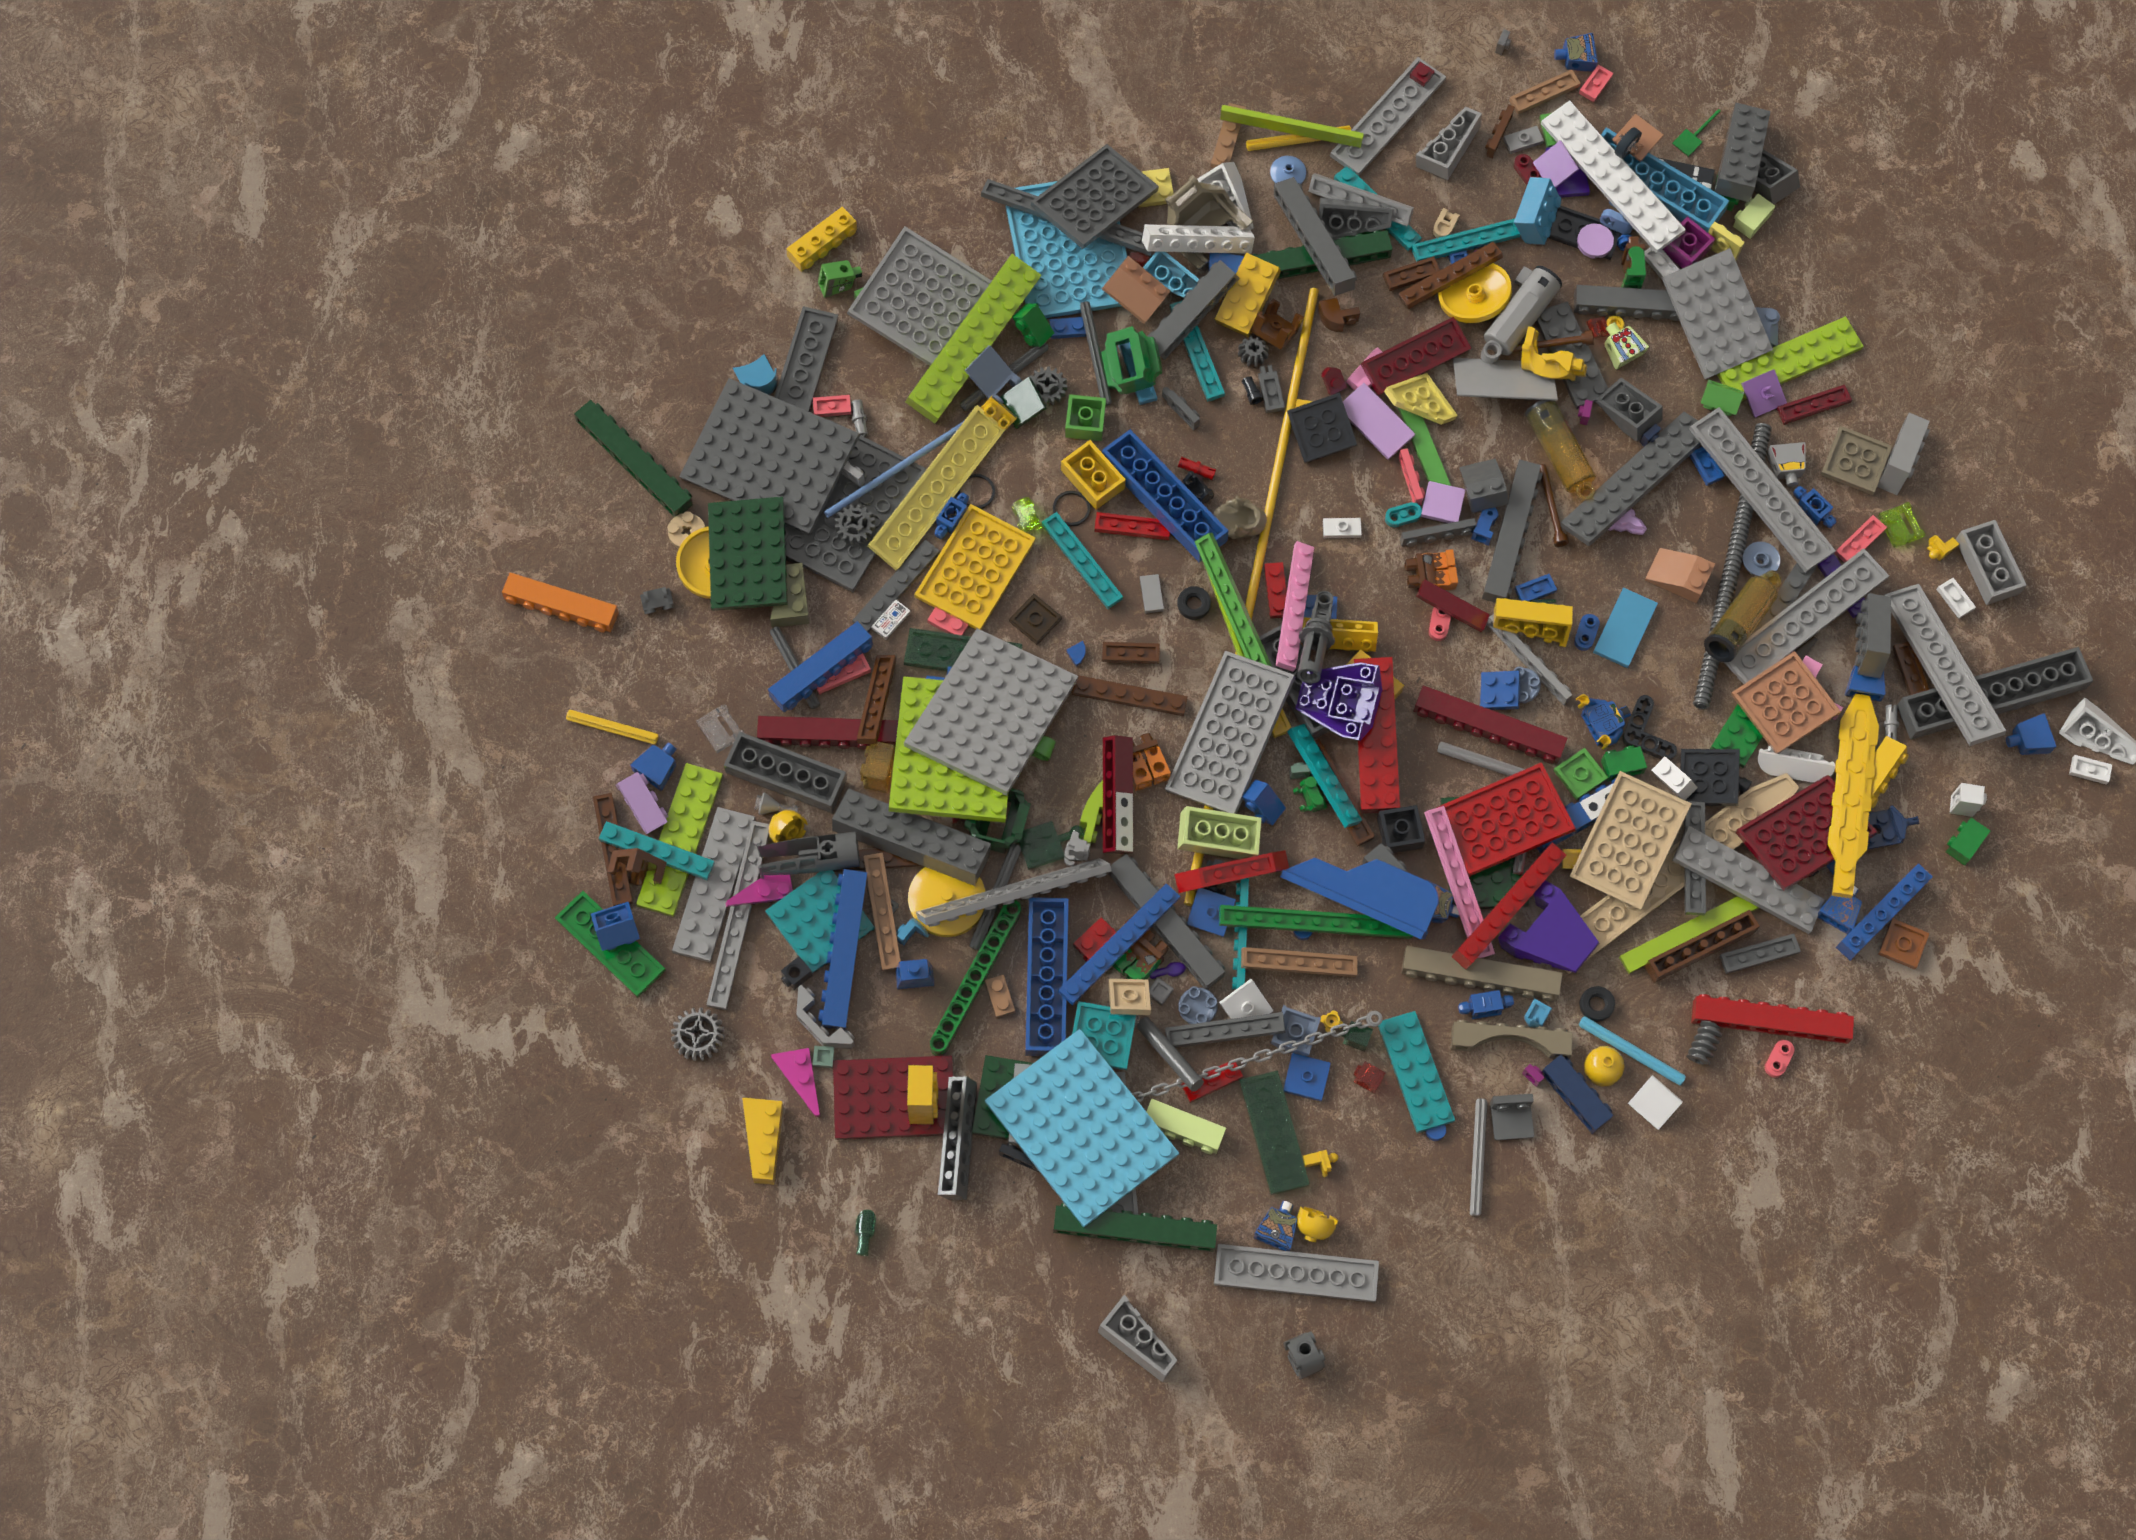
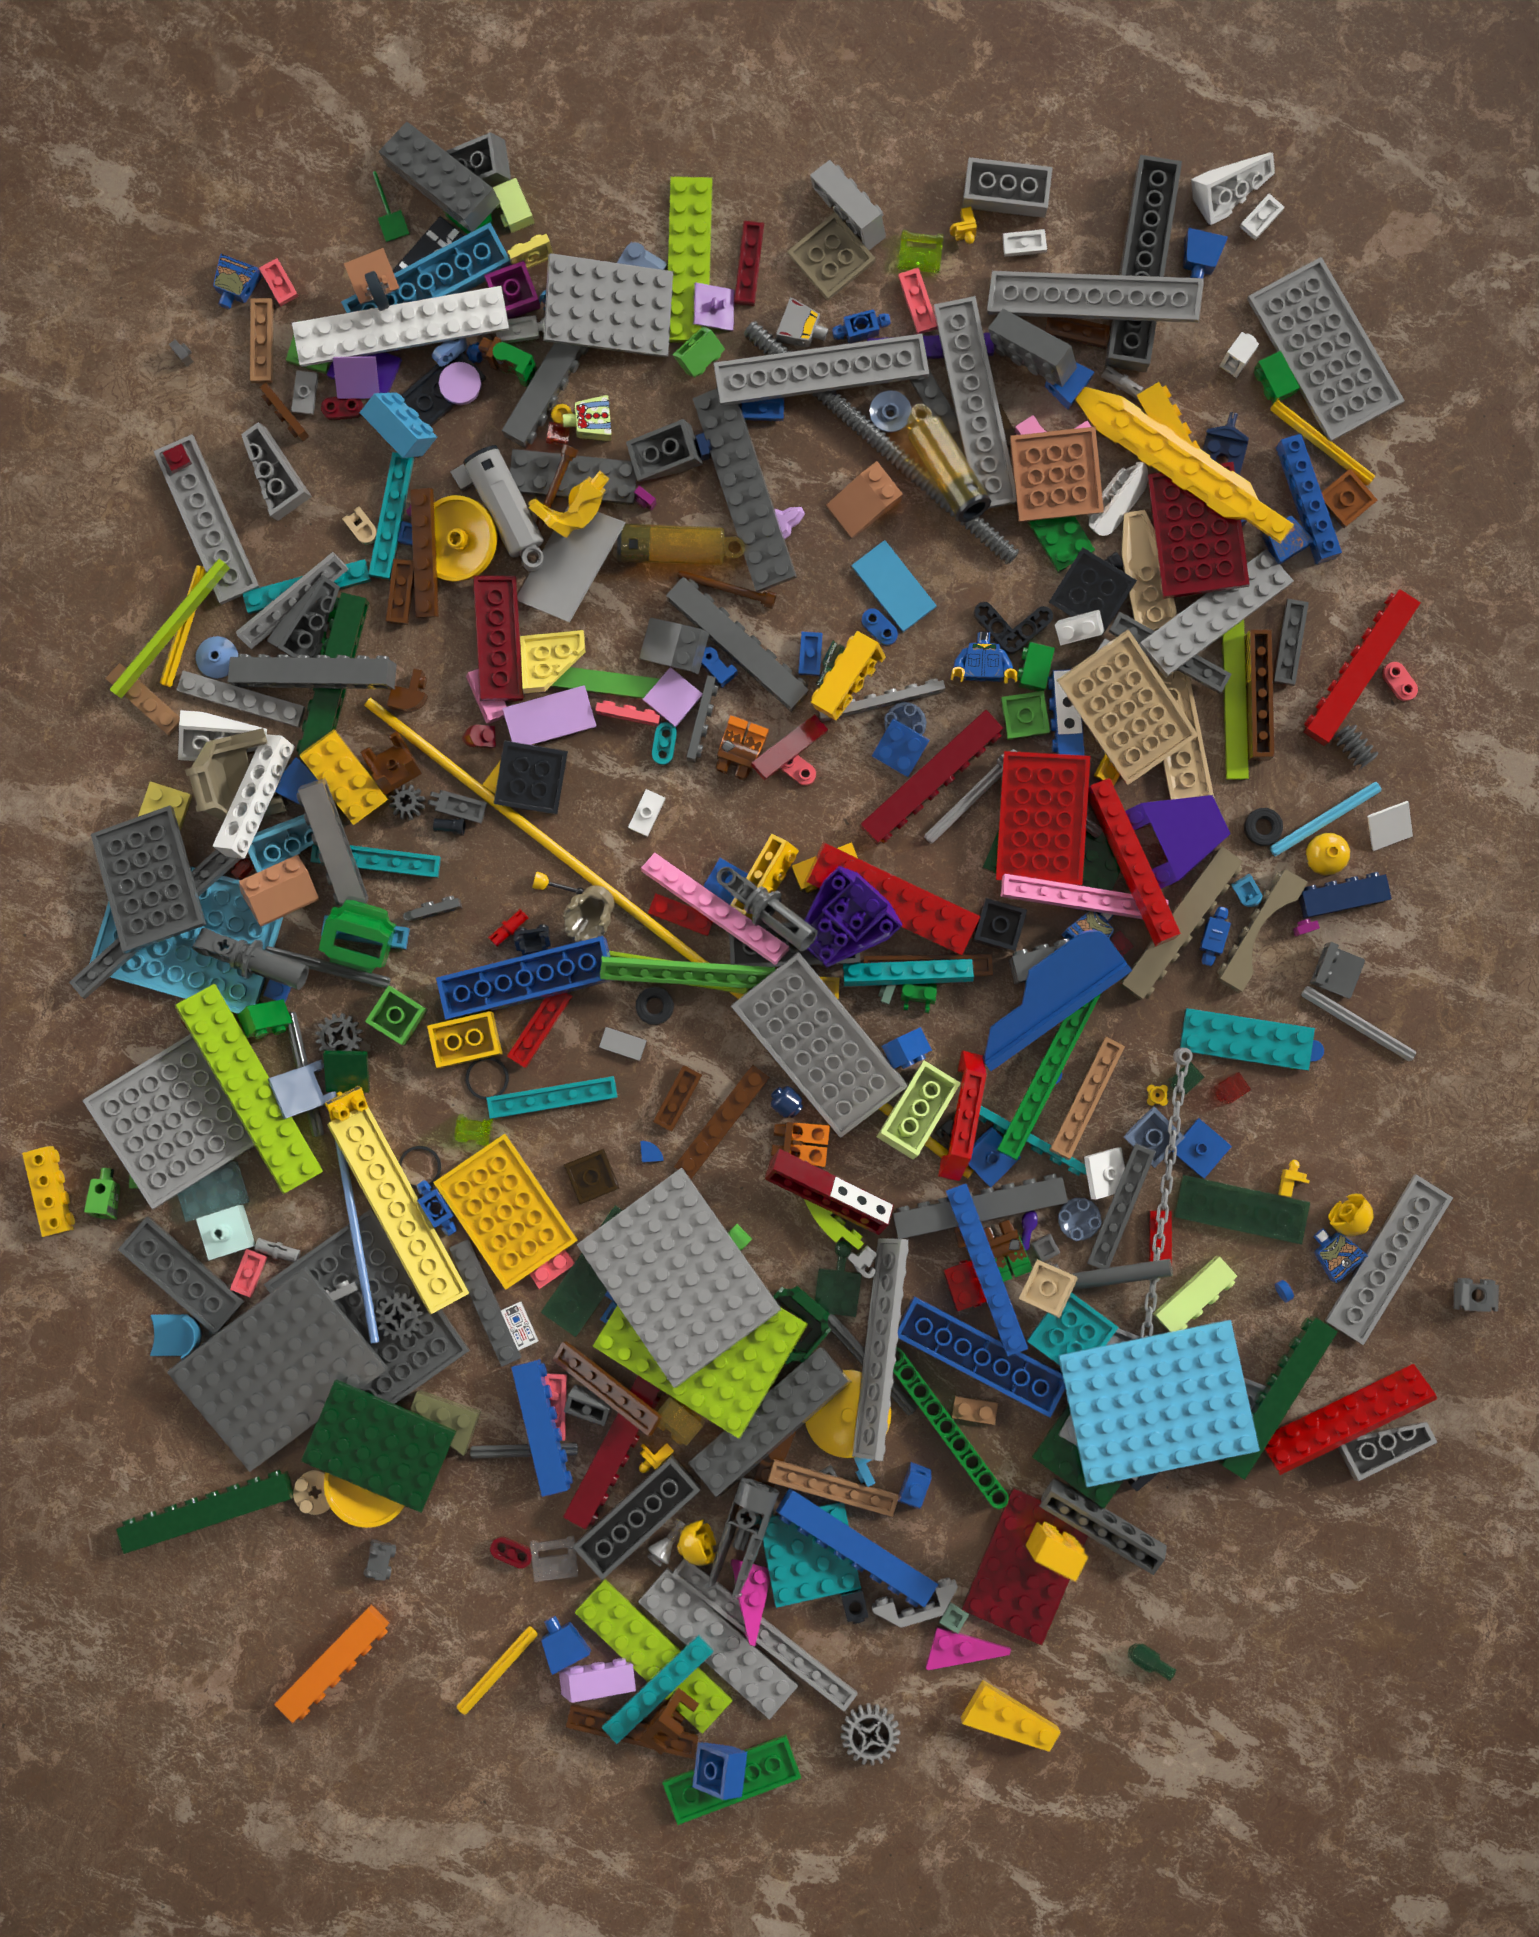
camera: 60 degrees left, 15 degrees up
(710, 695) = (510, 1555): none -> dark red plate
(836, 762) = (654, 1460): none -> yellow piece
(855, 374) = (225, 1232): none -> light aqua brick
(855, 694) = (587, 1405): none -> dark grey brick
(880, 354) = (214, 1193): none -> clear light blue plate
(1074, 293) = (251, 958): none -> dark grey piece
(1146, 1297) = (1348, 1418): none -> red plate
(1171, 734) = (786, 1102): none -> dark blue head
(1224, 1199) = (1284, 1291): none -> blue tile
(1245, 475) = (541, 882): none -> hinge
(1266, 201) = (241, 699): none -> light grey plate
(1436, 934) = (1121, 943): none -> dark red plate
(1937, 903) = (1322, 442): none -> yellow axle
(2014, 870) = (1325, 349): none -> light grey plate

